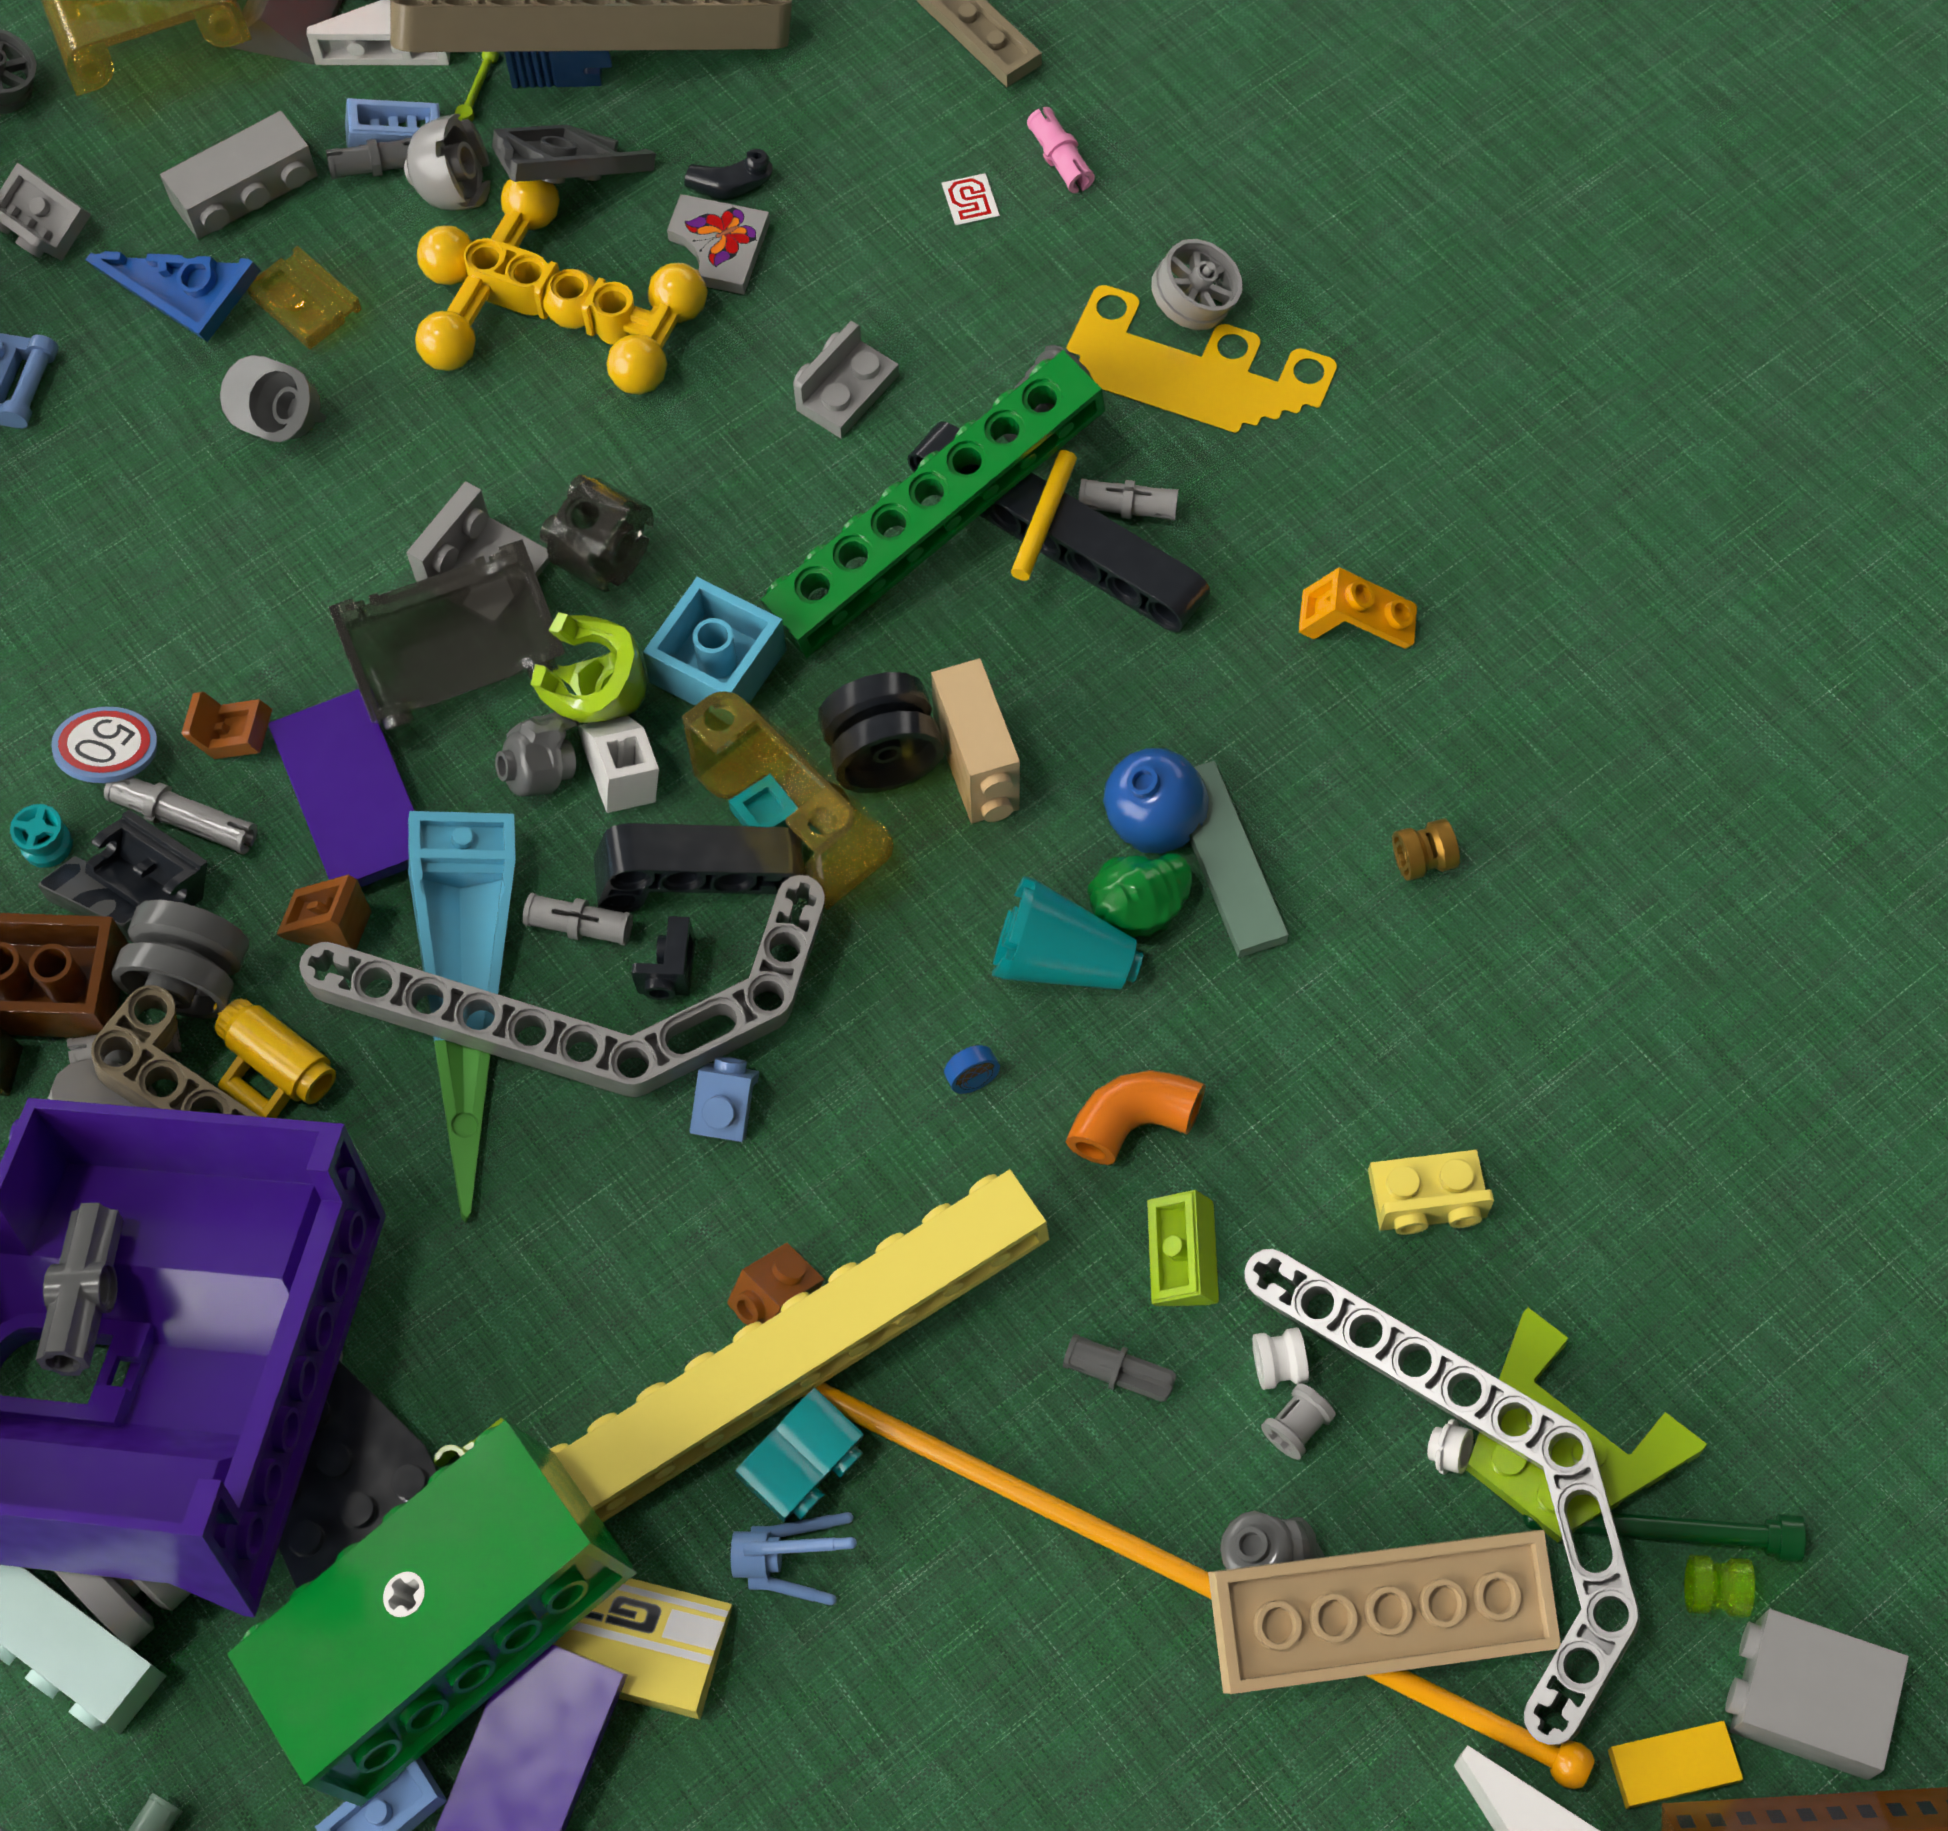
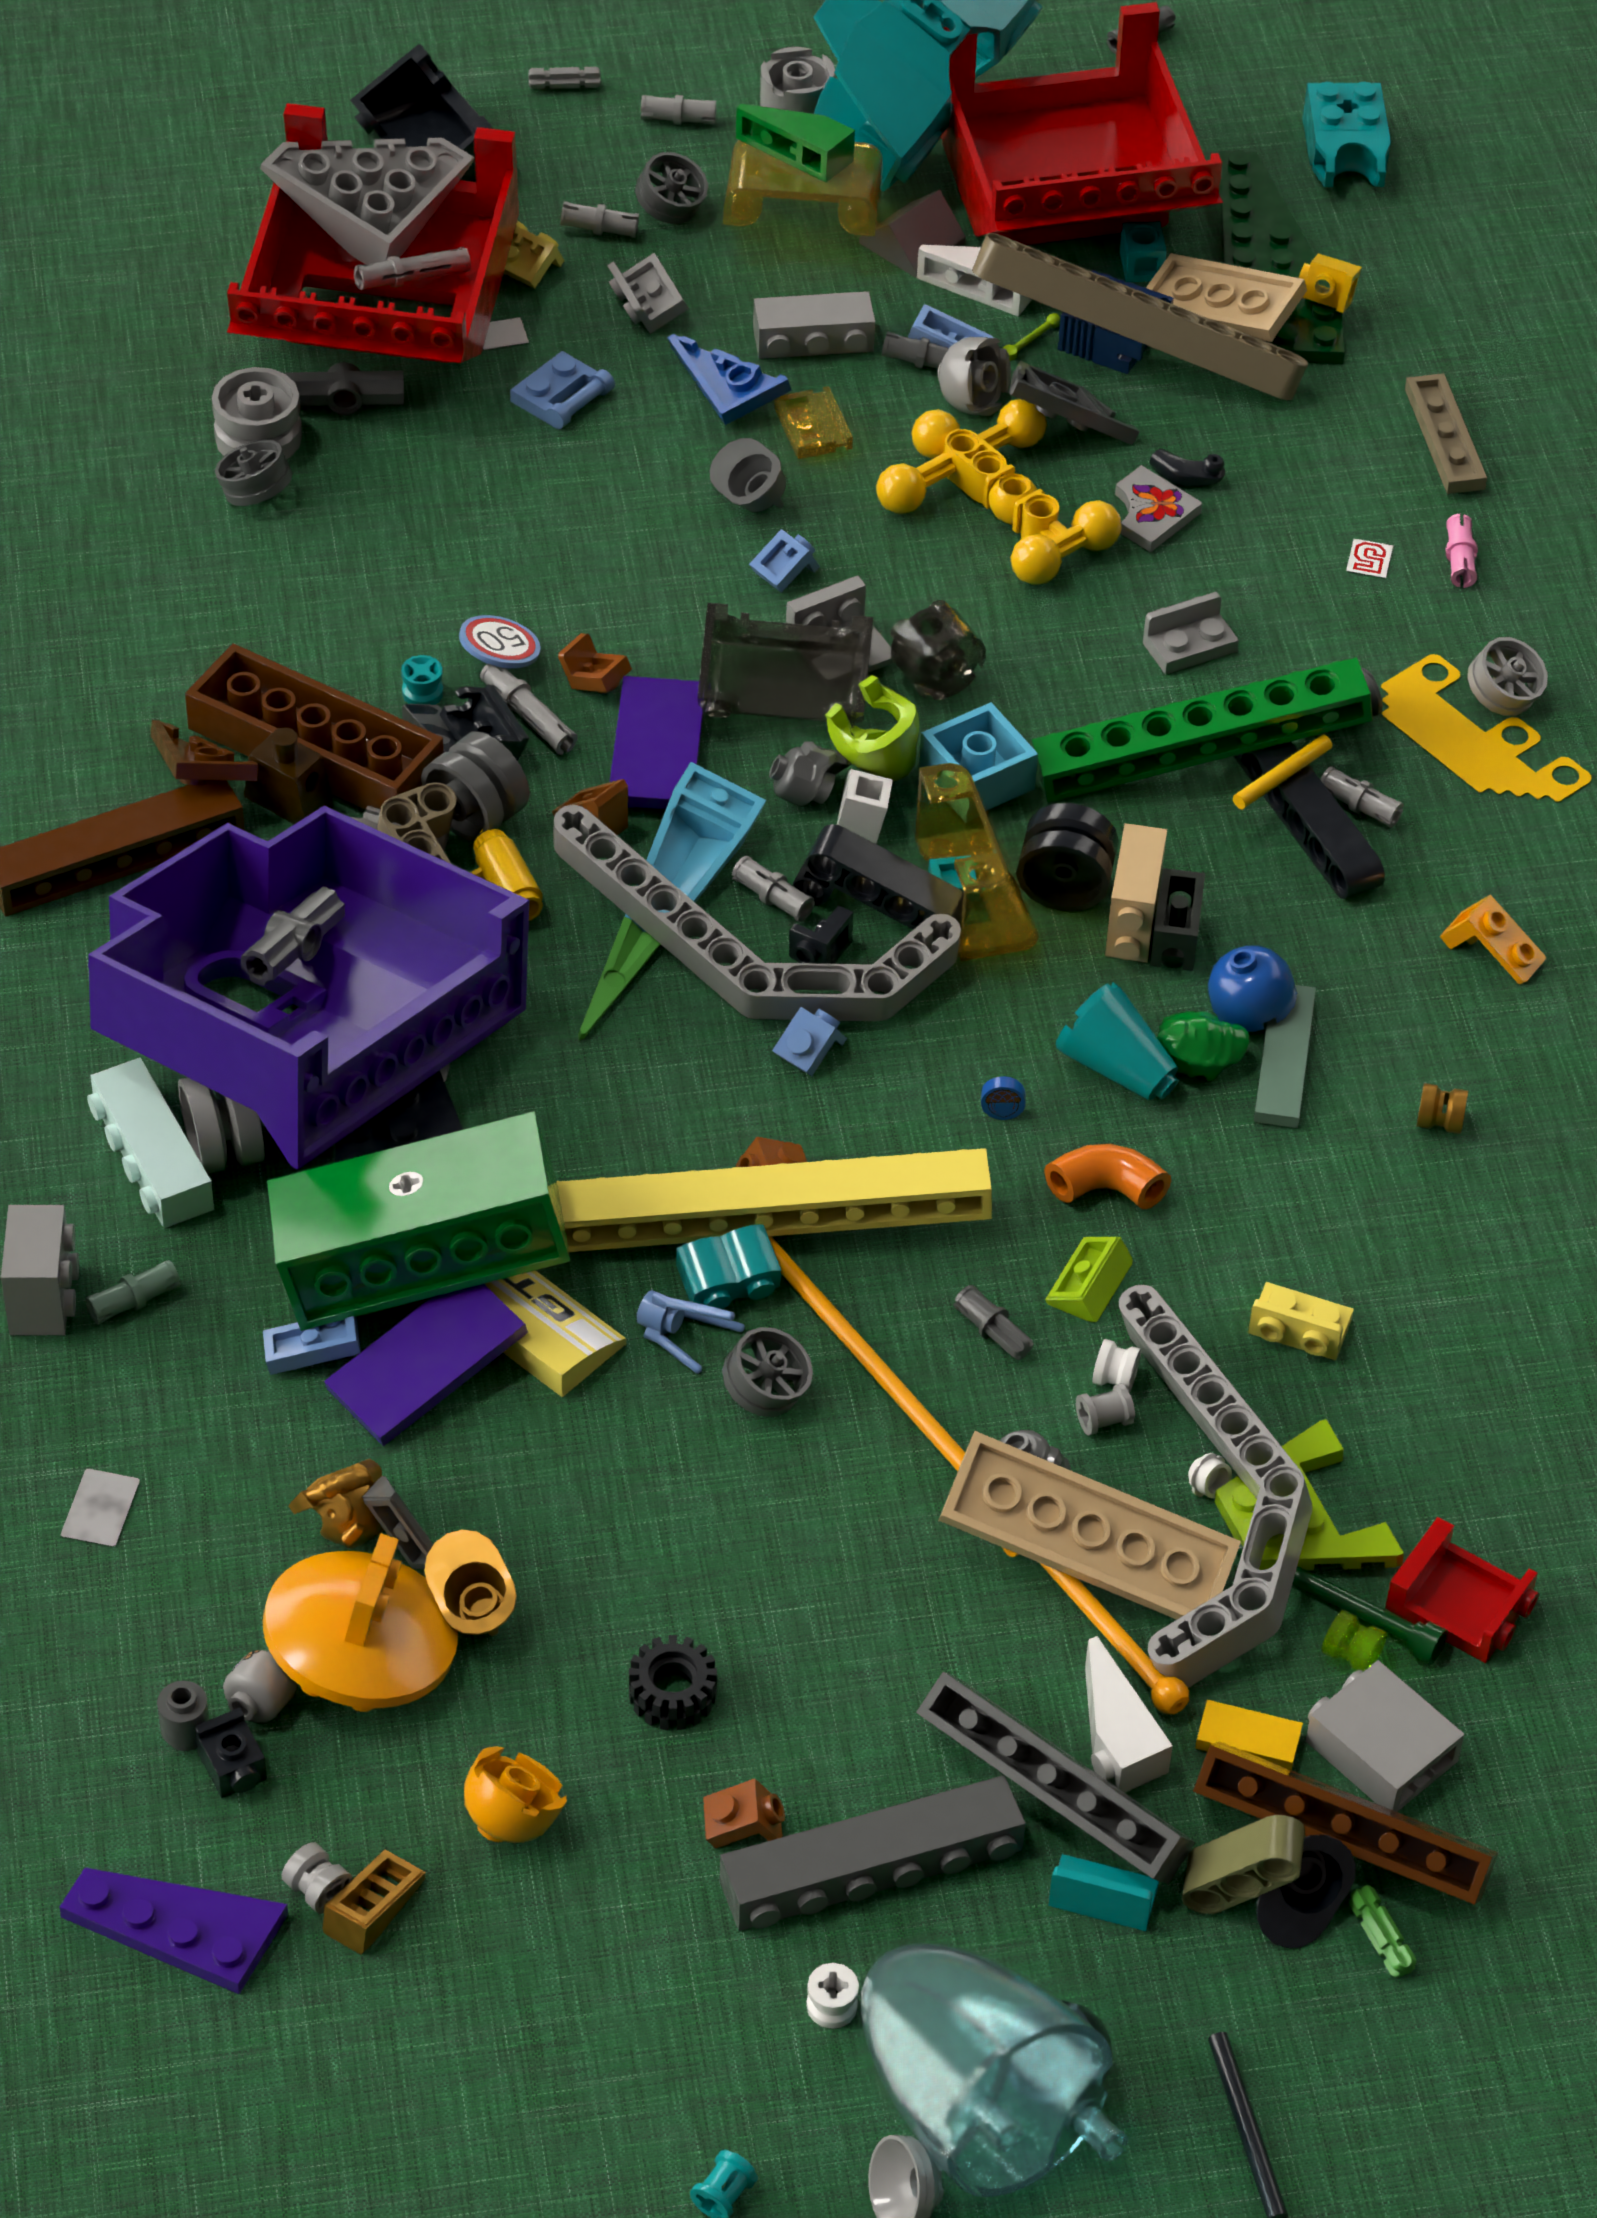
camera: 25 degrees right, 15 degrees down
(365, 488) = (784, 559): none -> medium blue bracket
(919, 1577) = (769, 1370): none -> dark grey wheel
(1043, 756) = (1177, 923): none -> pearl dark grey brick
(1788, 1458) = (1460, 1594): none -> red panel

